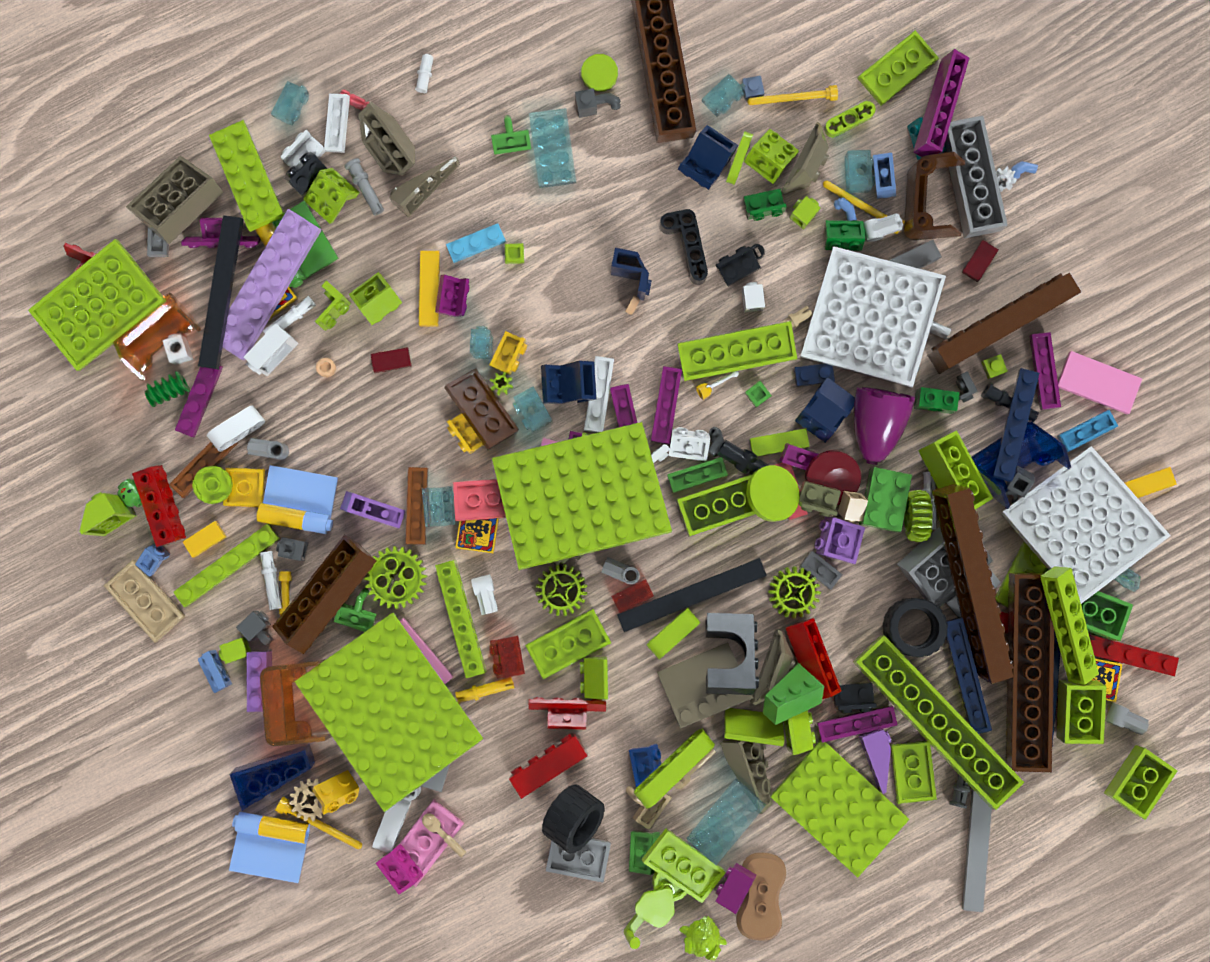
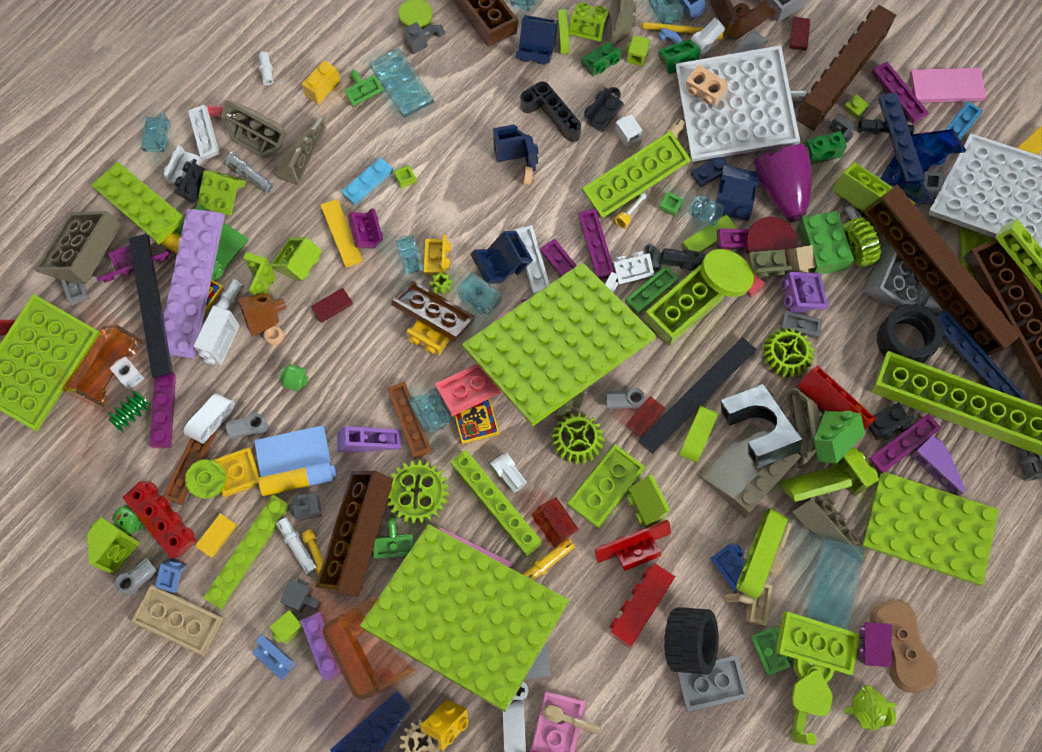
camera: 20 degrees left, 15 degrees down
(122, 548) = (137, 575): none -> light grey piece
(320, 342) = (260, 312): none -> dark orange torso
(327, 419) = (293, 377): none -> bright green head
(472, 114) = (321, 82): none -> yellow brick
(788, 419) = (705, 209): none -> clear light blue wheel
(854, 285) = (709, 82): none -> light nougat brick
(913, 772) = (978, 466): lime tile -> none

